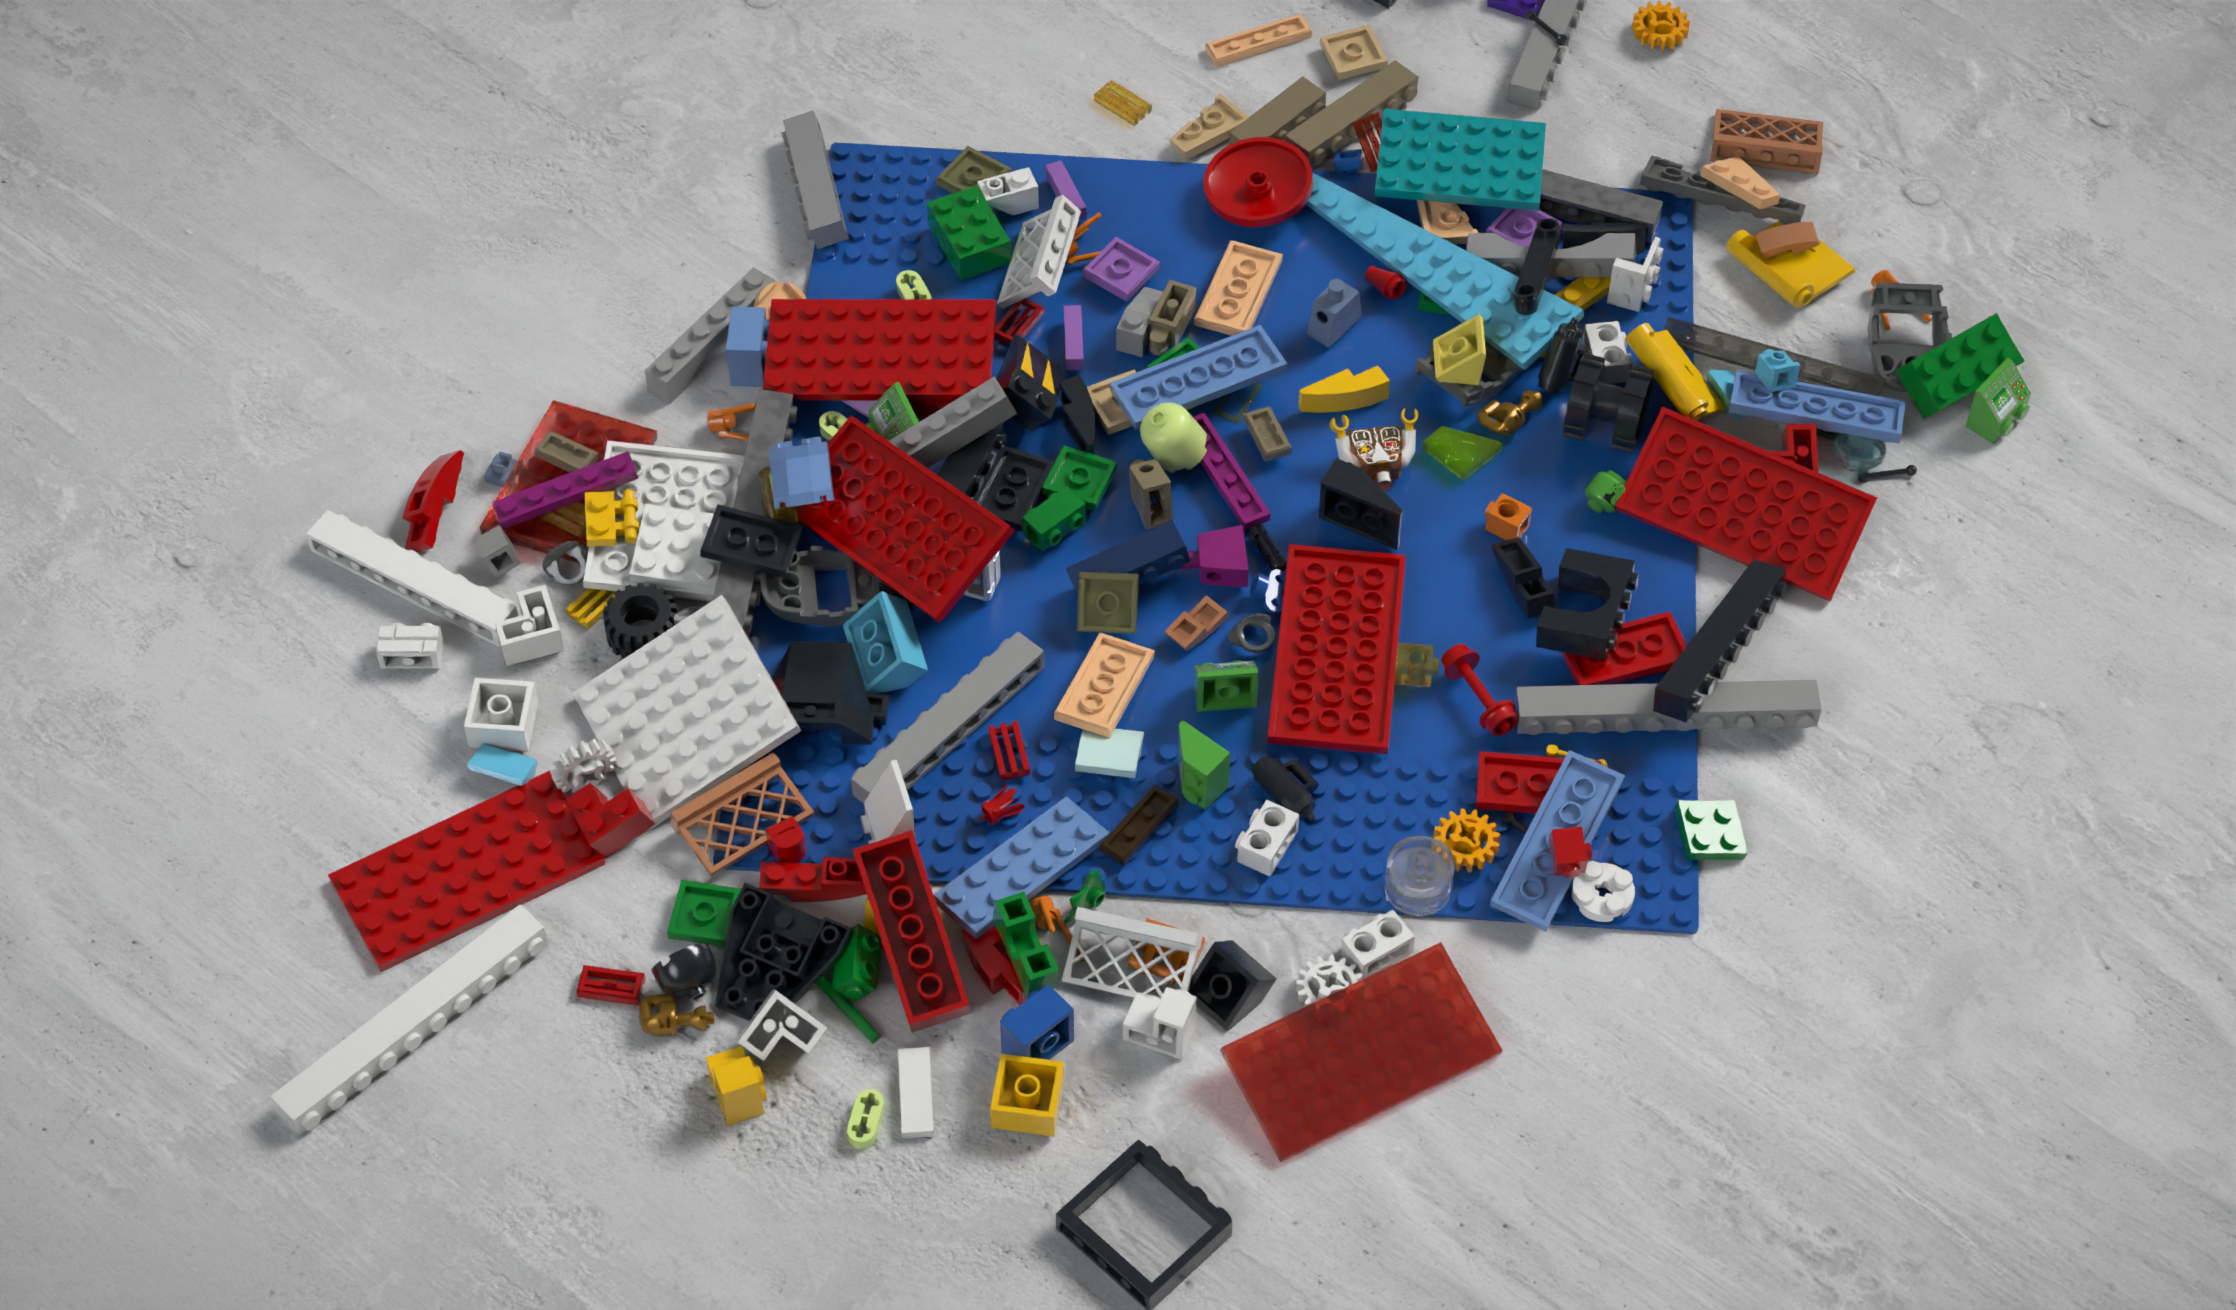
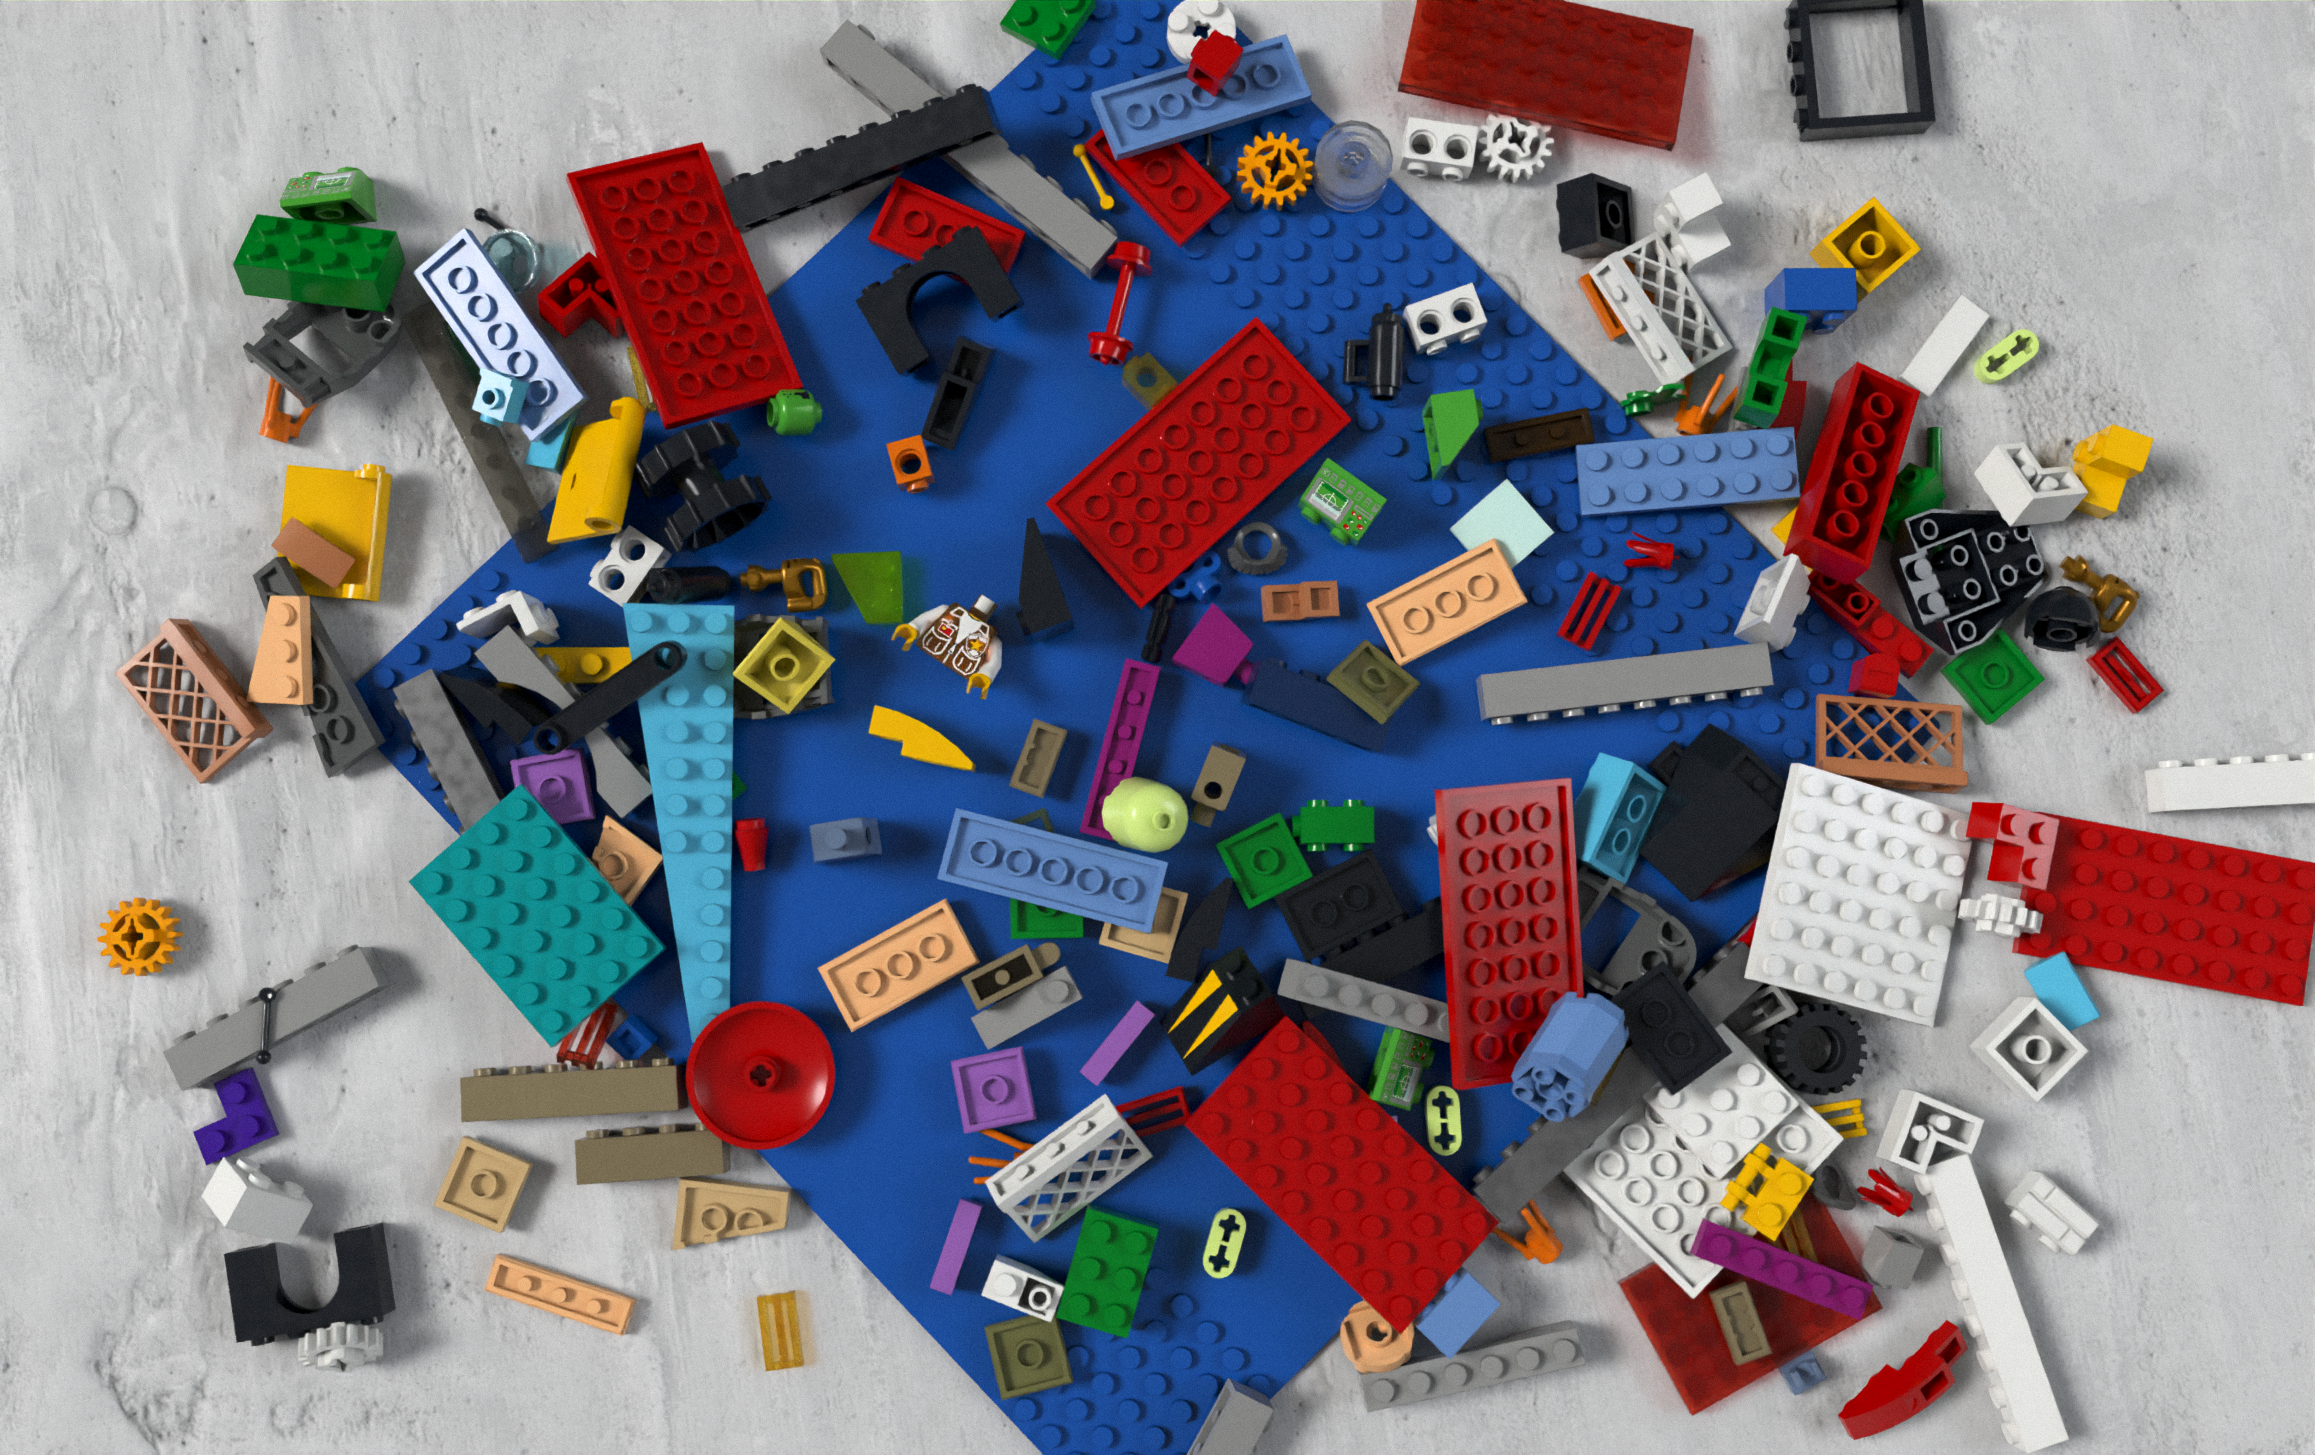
camera: 140 degrees left, 30 degrees up
(522, 583) = (1887, 1195): none -> red piece

